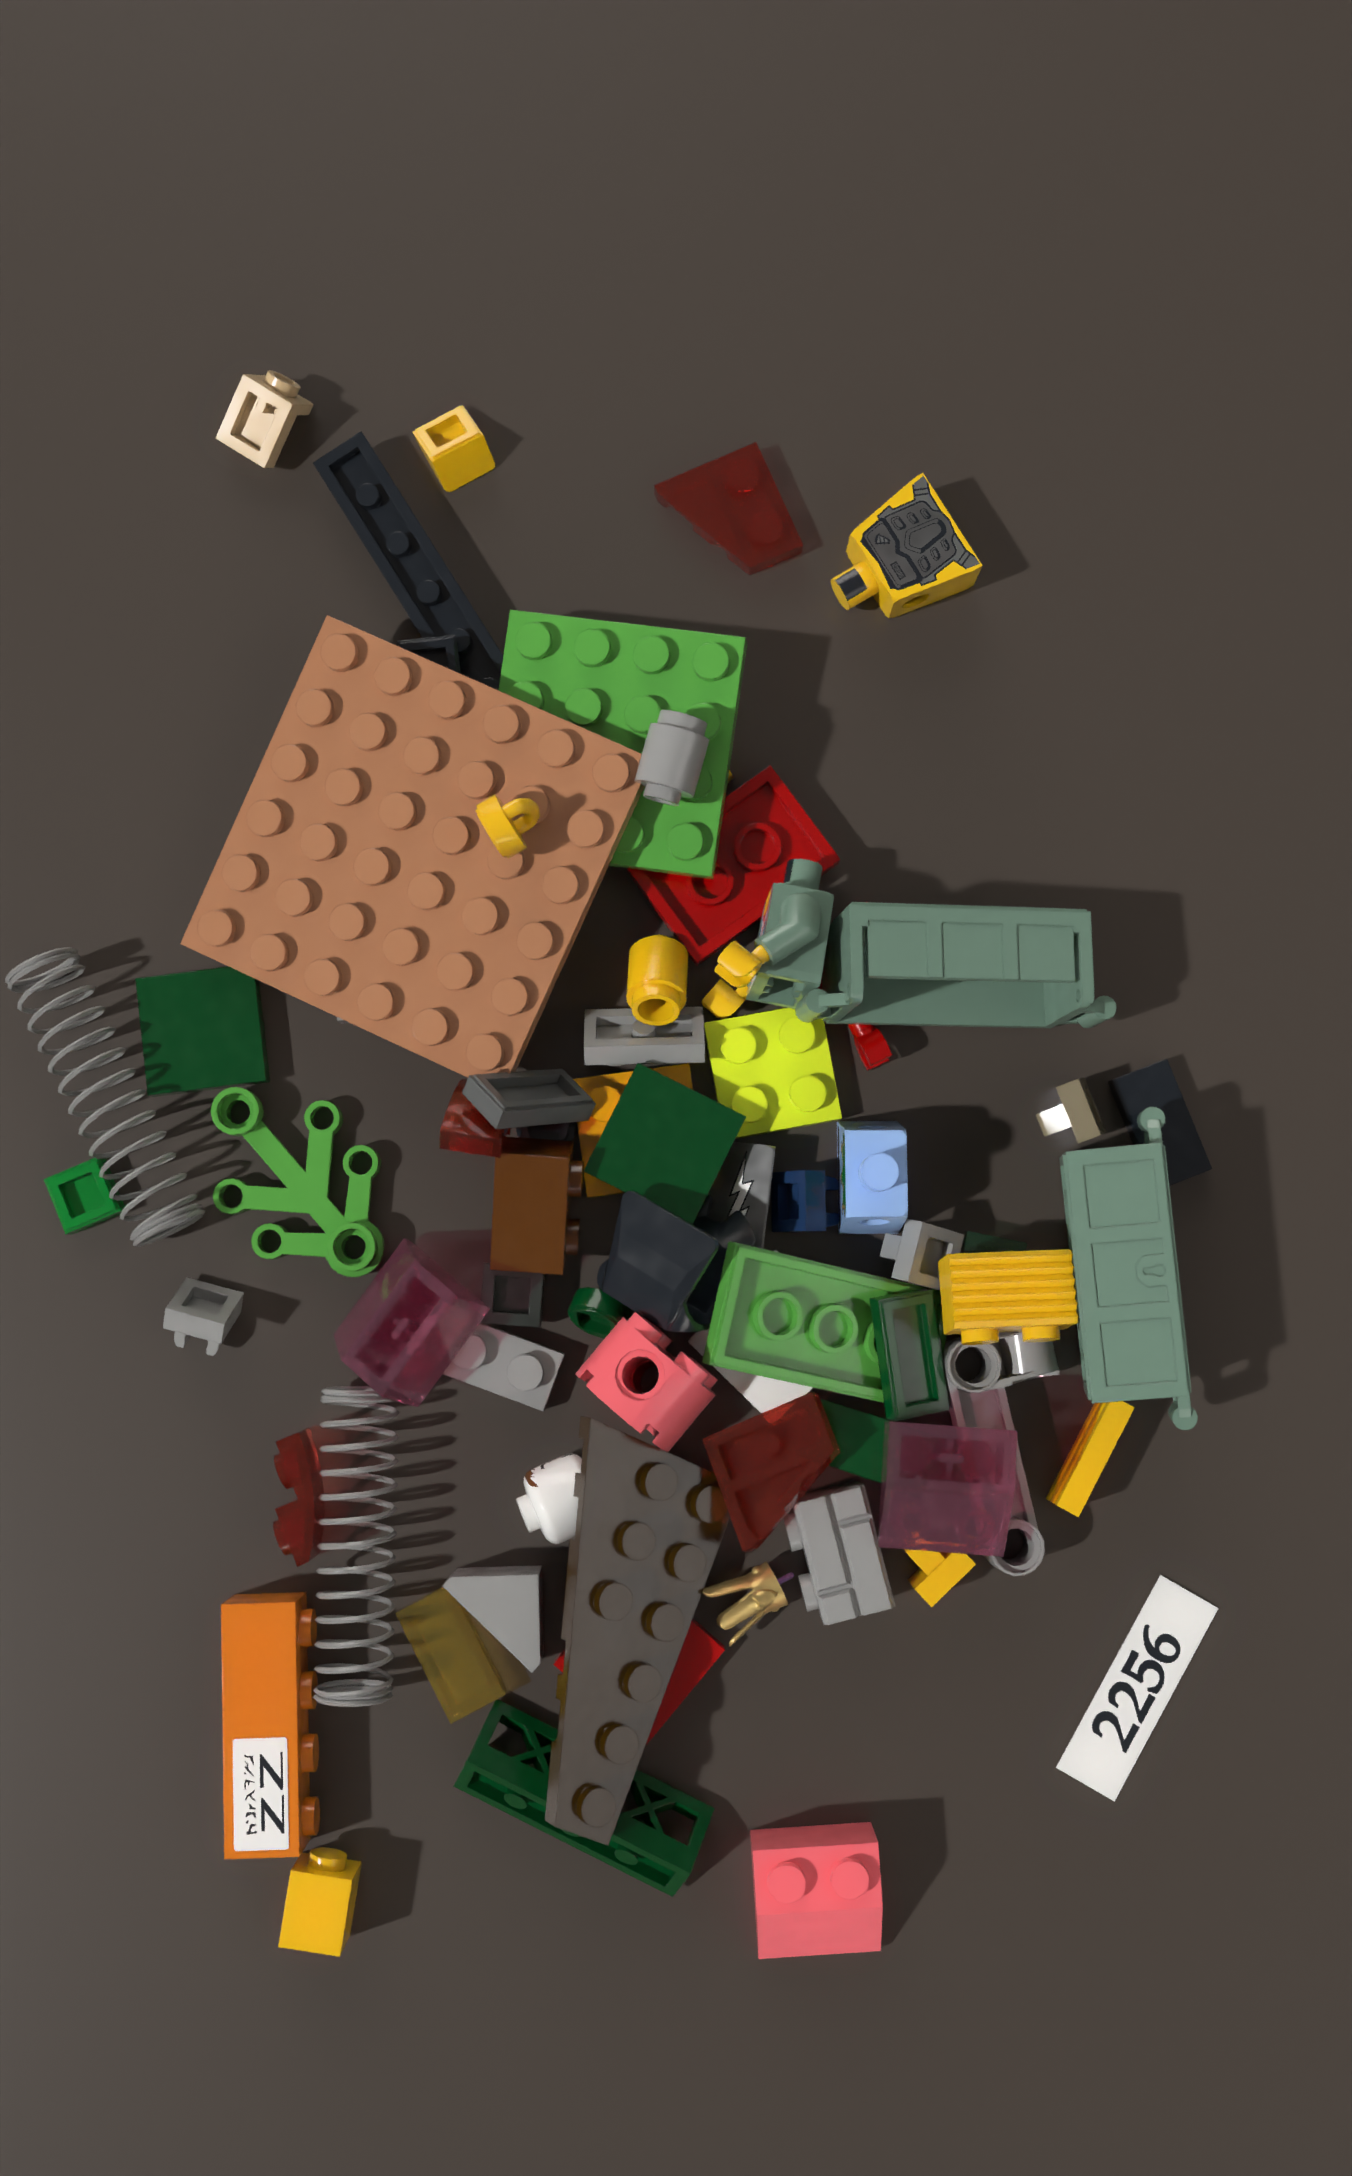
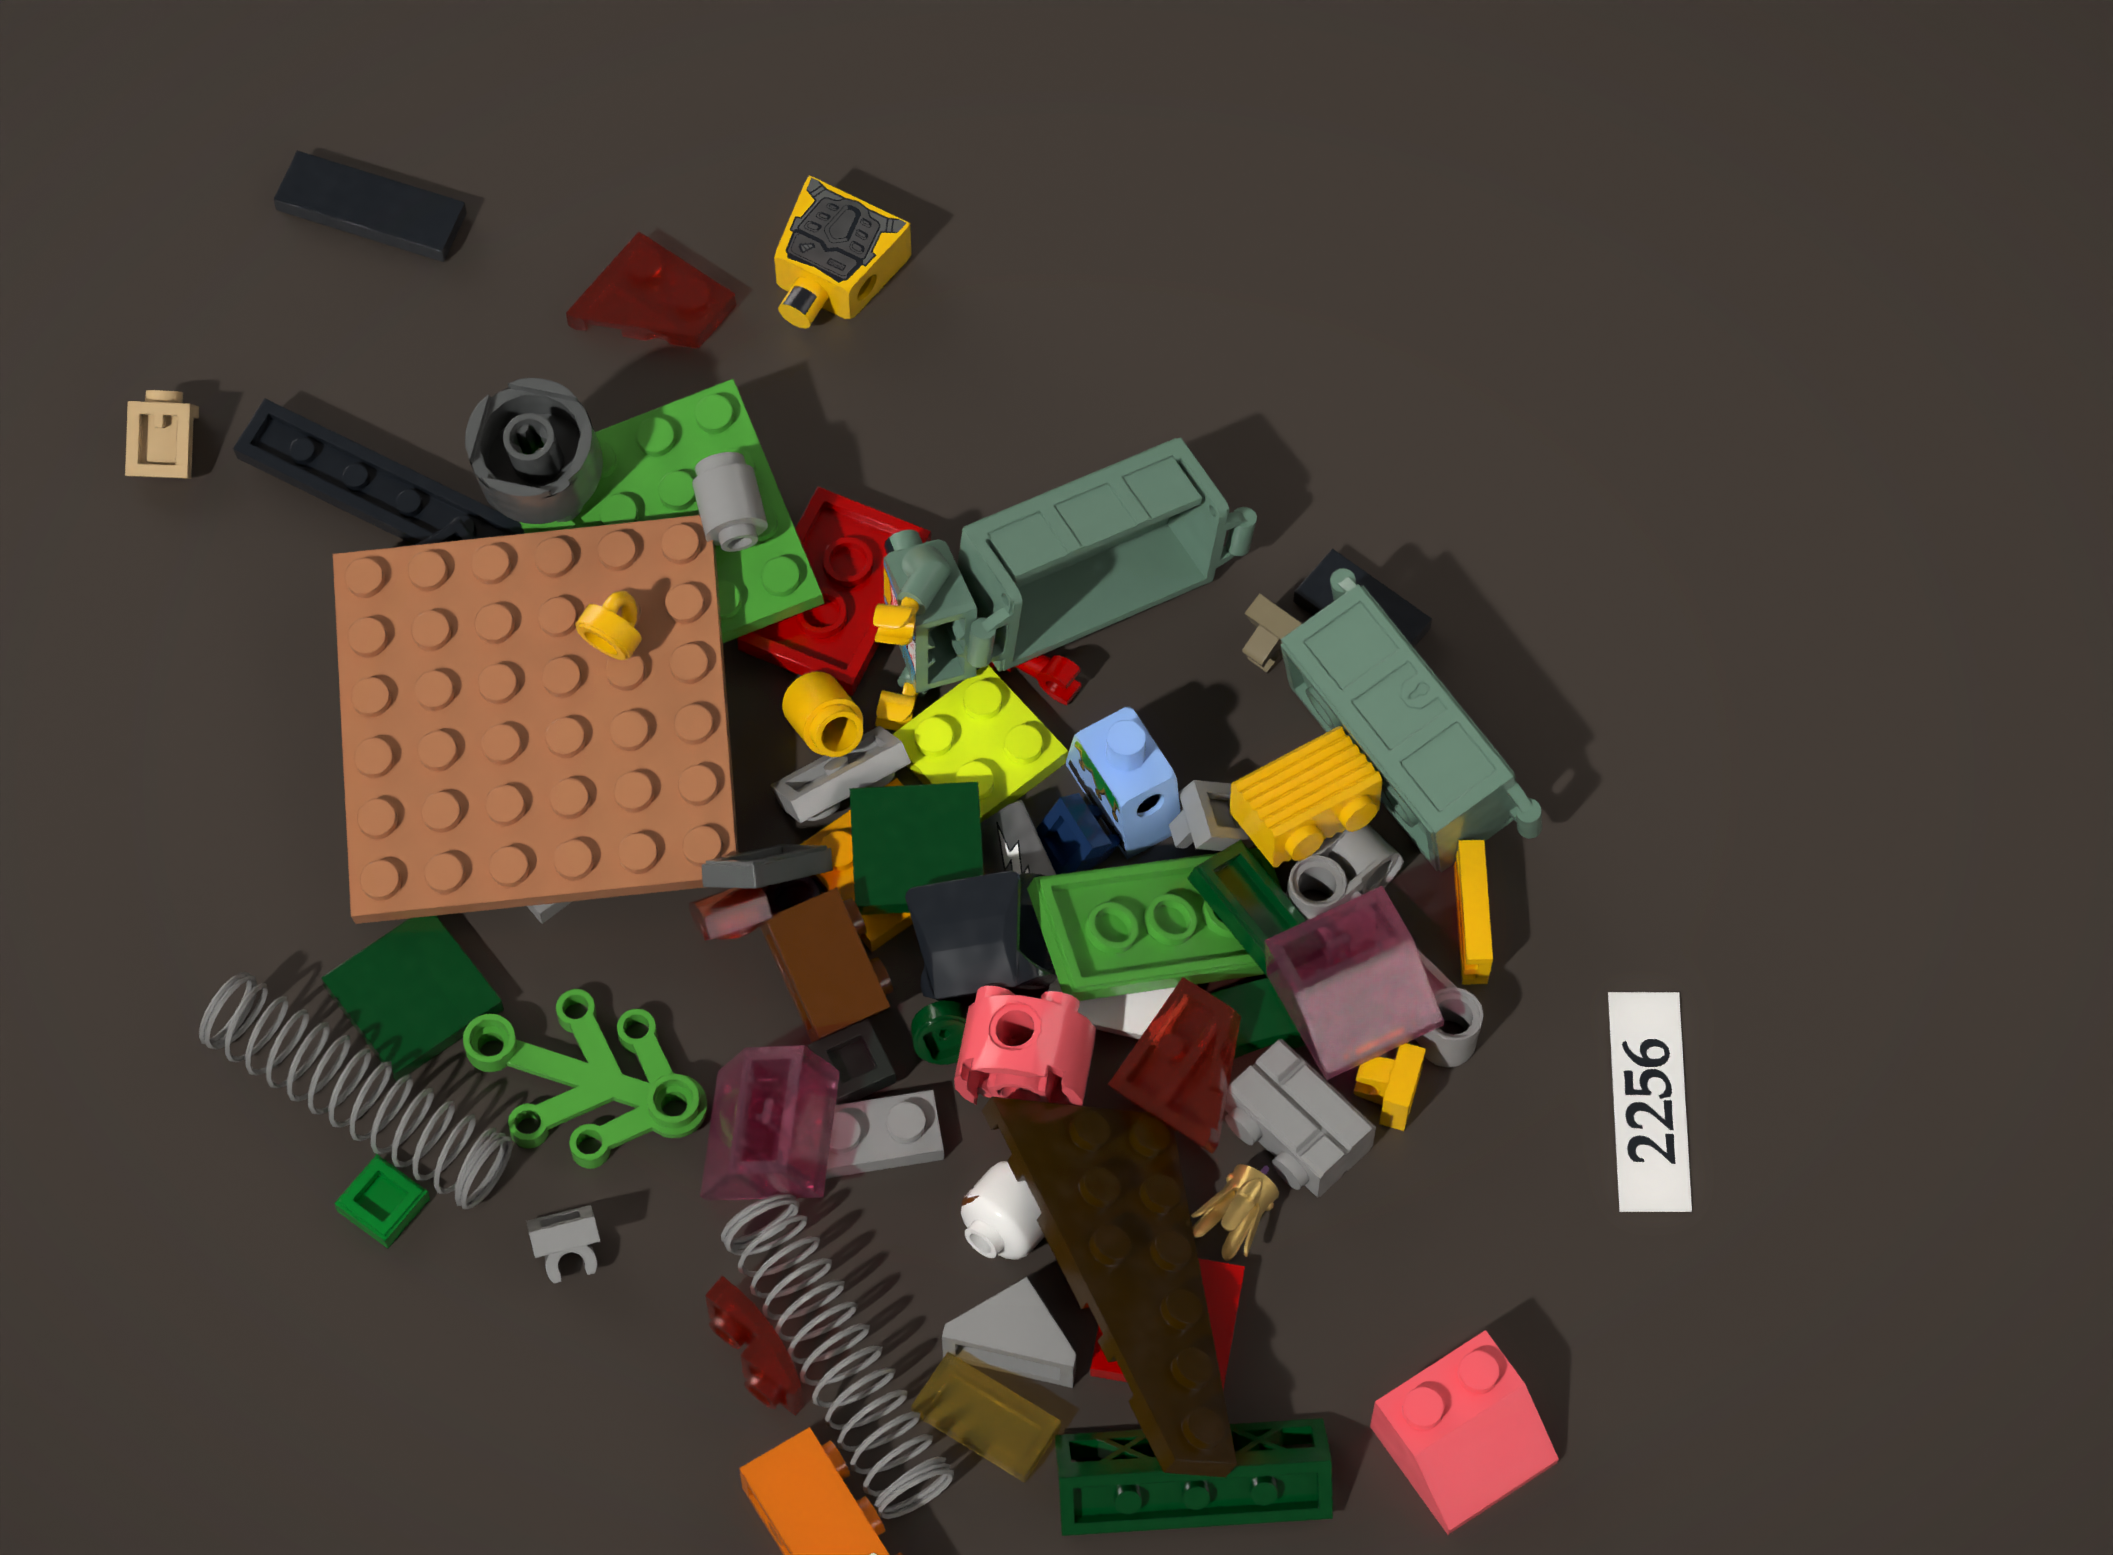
camera: 30 degrees left, 20 degrees down
(455, 448) = (357, 376): yellow slope -> none
(549, 294) = (370, 206): none -> black tile
(549, 590) = (505, 455): none -> dark grey brick

